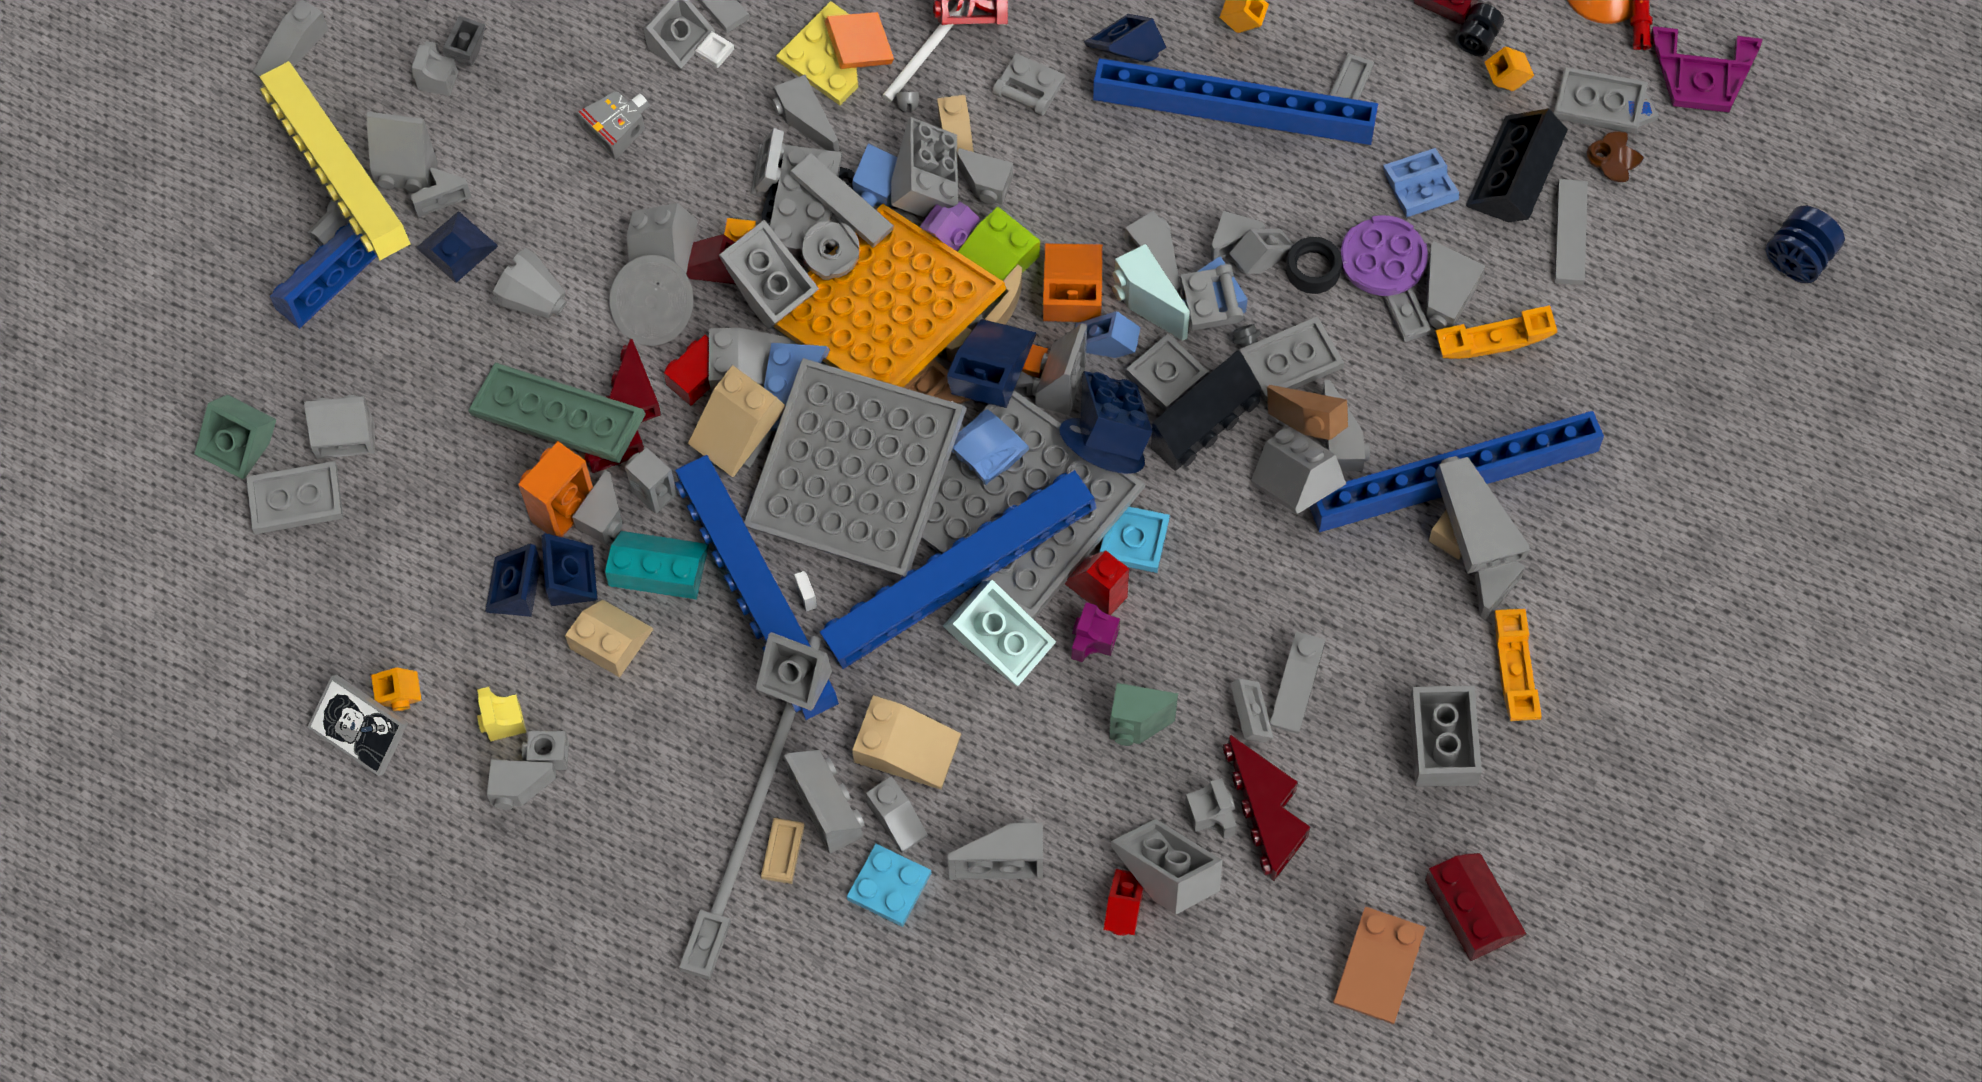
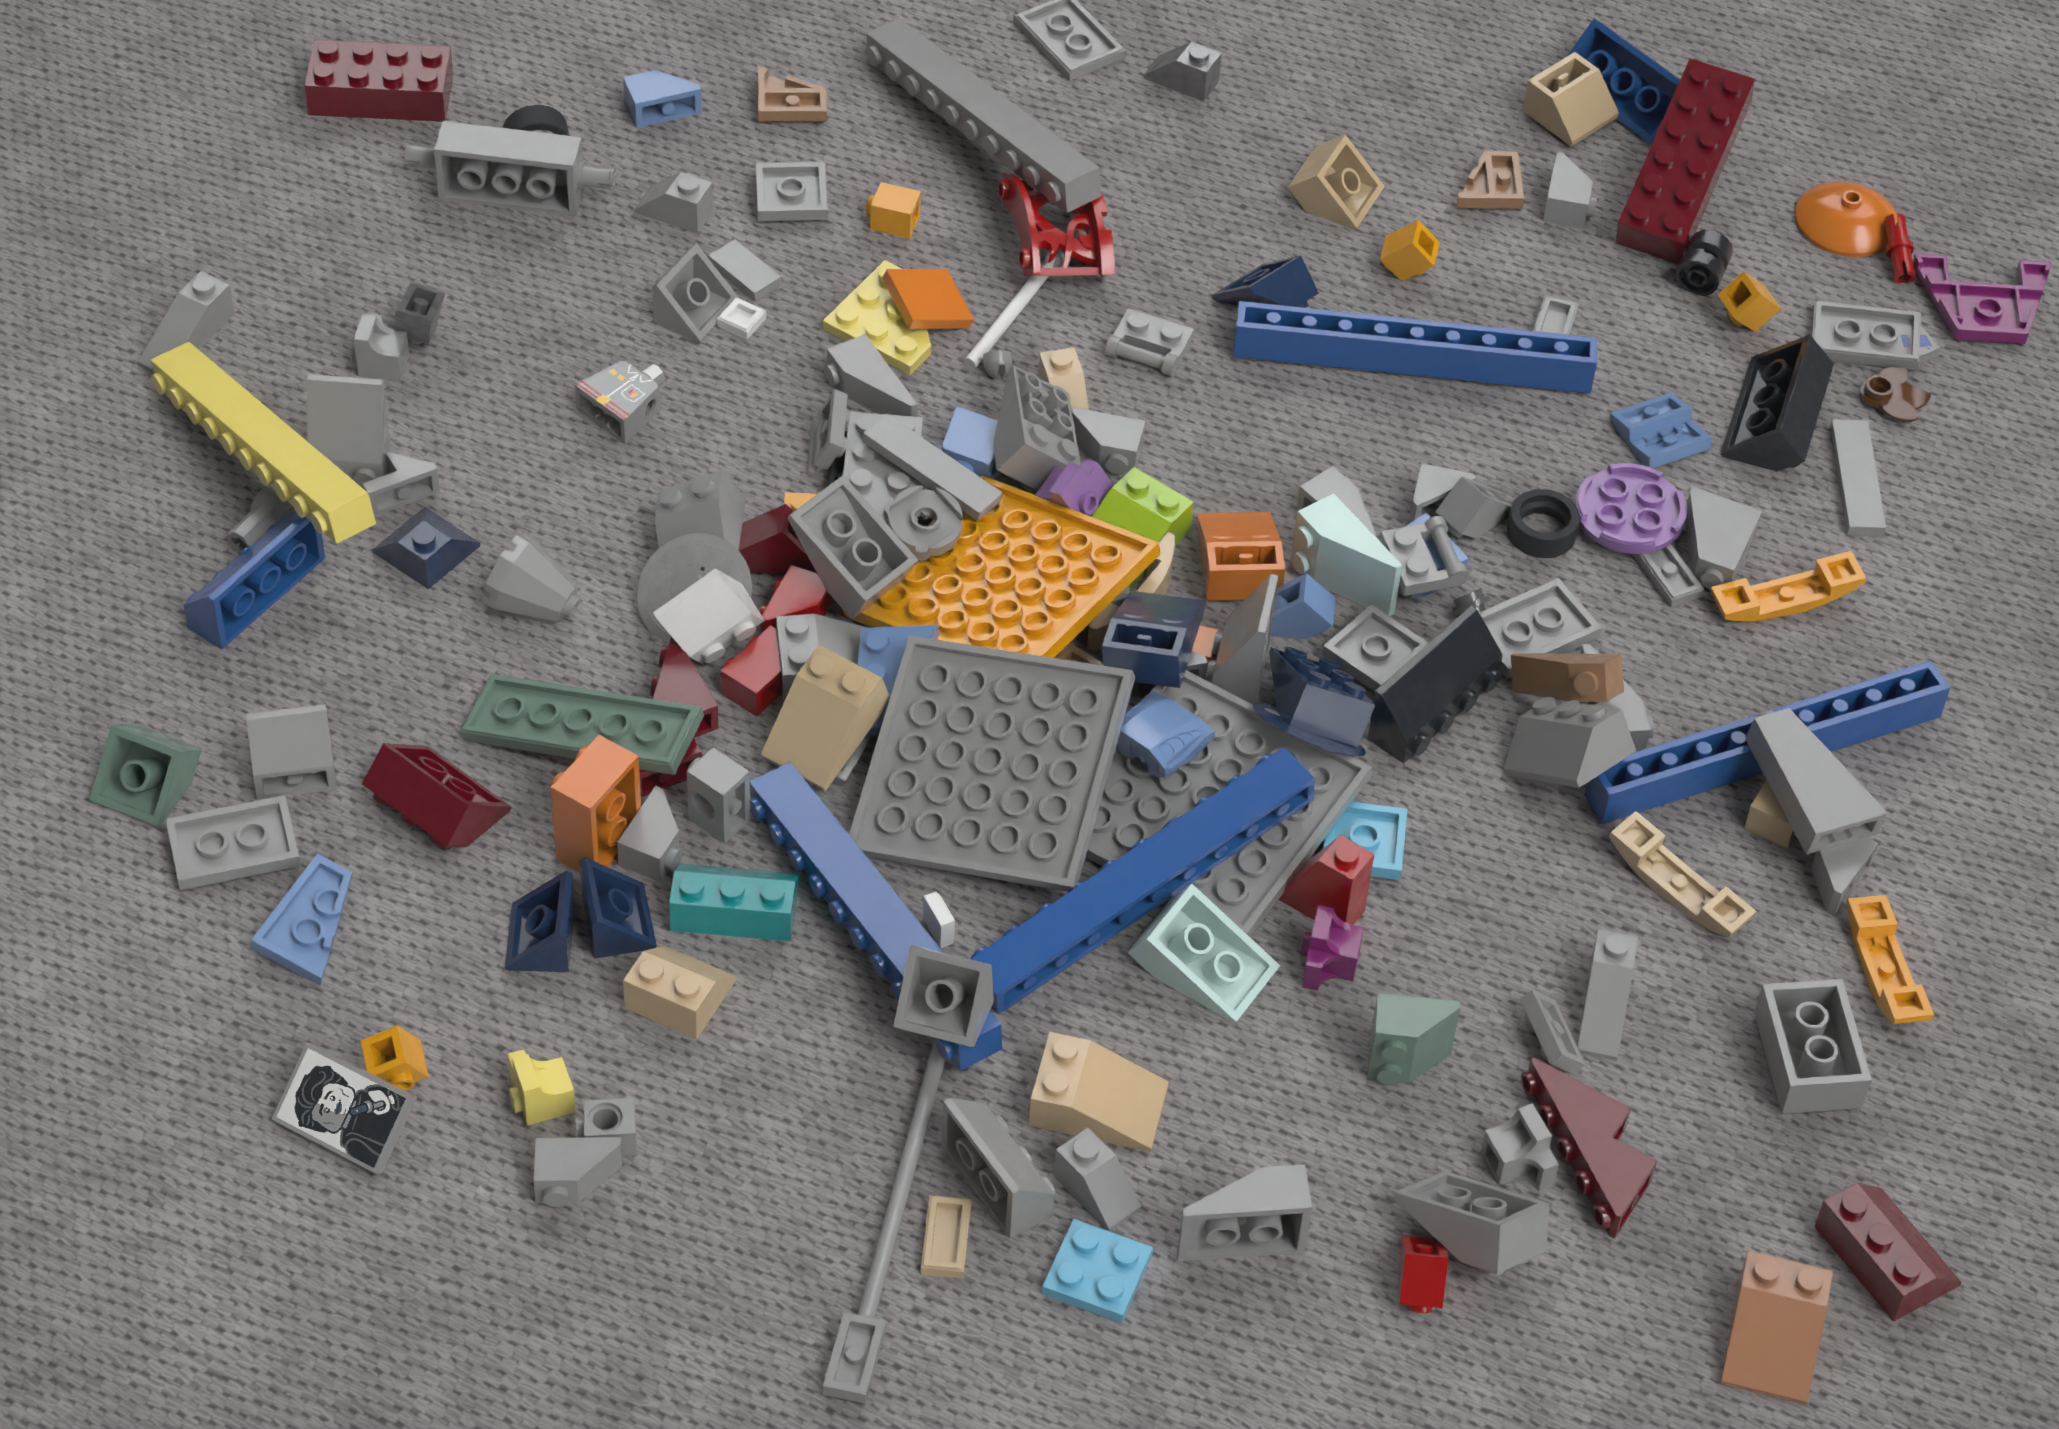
camera: 10 degrees left, 15 degrees down
(343, 565) = (306, 920): none -> medium blue wing
(444, 464) = (433, 794): none -> dark red slope
(659, 328) = (710, 616): none -> white slope
(726, 311) = (796, 594): none -> slope
(1368, 586) = (1675, 881): none -> tan slope

